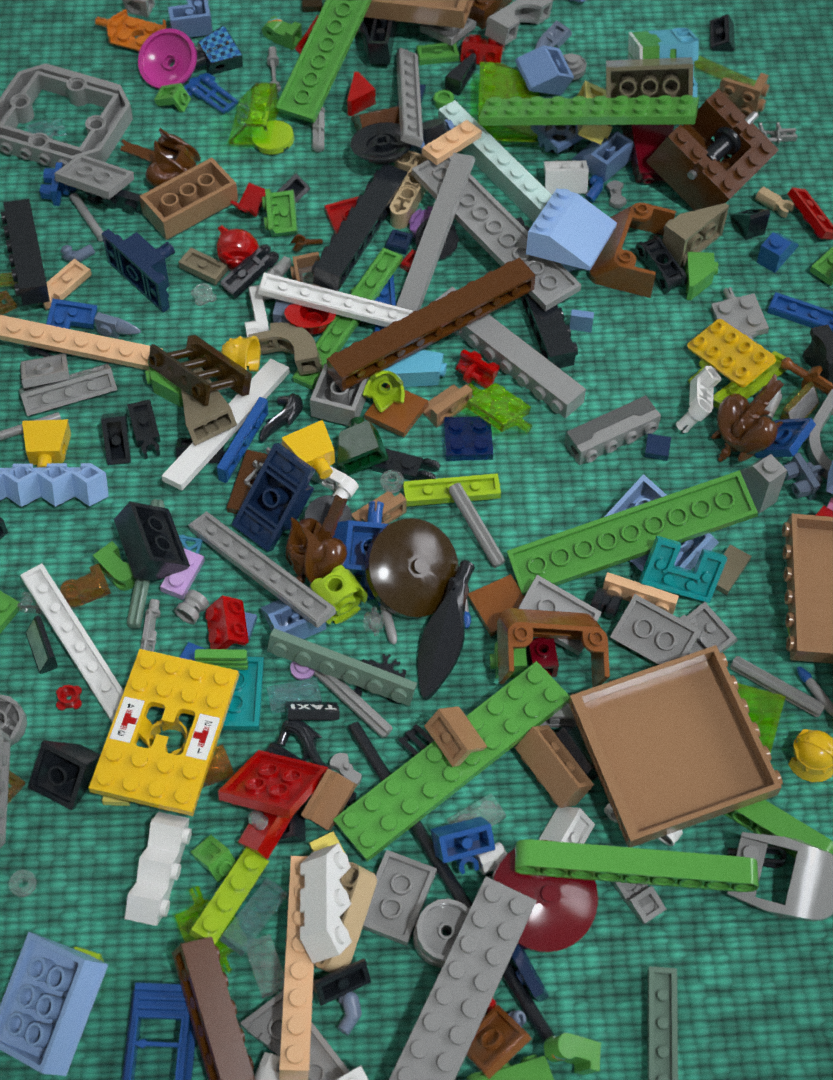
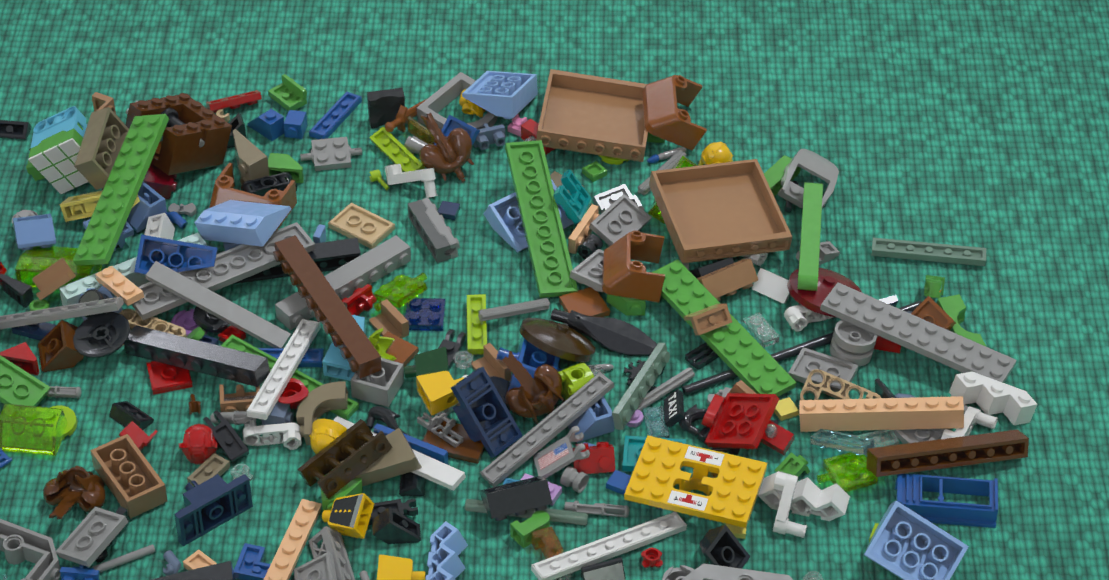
camera: 85 degrees left, 15 degrees down
(114, 326) = (269, 534): sand blue plate -> none
(125, 389) = (350, 515): none -> torso
(131, 840) = (786, 484): none -> white beam
(221, 581) = (560, 454): none -> light grey flag
(225, 658) = (631, 452): bright green tile -> none
(229, 896) = (828, 454): lime plate -> none
(281, 213) = (160, 414): bright green bracket -> none
(298, 751) = (712, 410): none -> red beam
(323, 903) = (840, 385): white brick -> none
(403, 227) = (196, 334): none -> bright green tile
(463, 841) = (786, 325): blue brick -> none
(472, 97) = (53, 278): none -> medium nougat panel
(498, 172) = (173, 254): none -> blue wedge
(616, 362) = (361, 224): none -> tan tile
(731, 353) = (375, 153): yellow bracket -> none
(764, 481) = (493, 156): light grey slope -> none
(765, 605) = (594, 171): none -> bright green tile
(781, 276) = (295, 124): none -> blue brick

